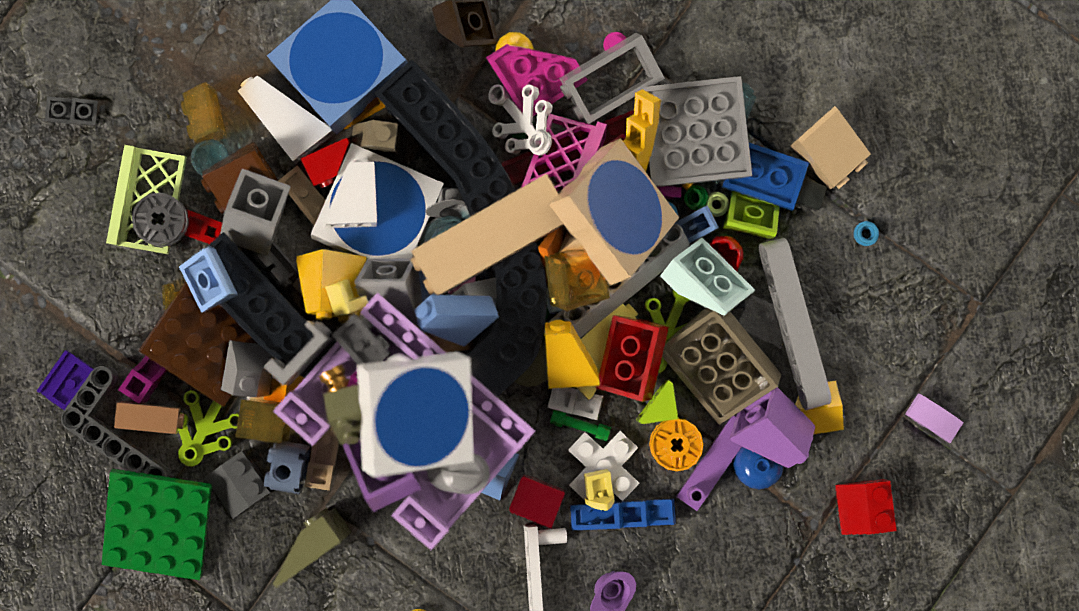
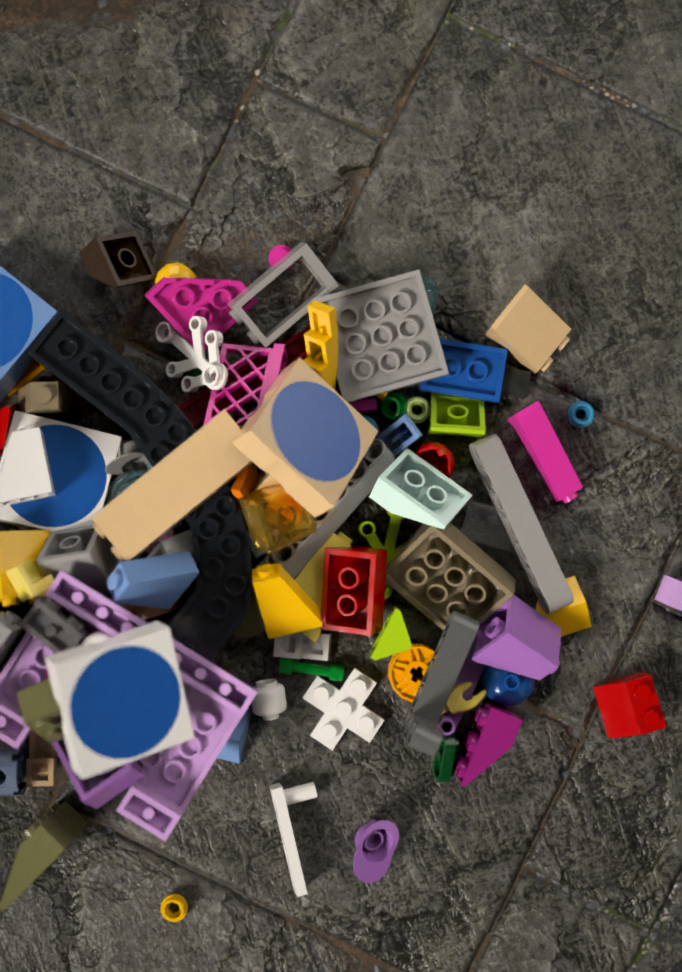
camera: 10 degrees left, 0 degrees up
(335, 378) = (30, 671): pearl gold wheel -> none
(461, 478) = (189, 755): light grey piece -> none
(536, 500) = (276, 759): dark red piece -> none
(538, 446) = (269, 699): none -> white head
(599, 489) = (342, 736): light yellow tile -> none
(624, 514) = (366, 759): blue slope -> none
(686, 468) = (420, 725): none -> dark grey beam
(687, 529) = (444, 758): none -> dark green plate
(708, 478) = (457, 704): none -> light yellow hand
(735, 513) = (488, 741): none -> magenta slope
(828, 262) = (545, 452): none -> dark pink slope

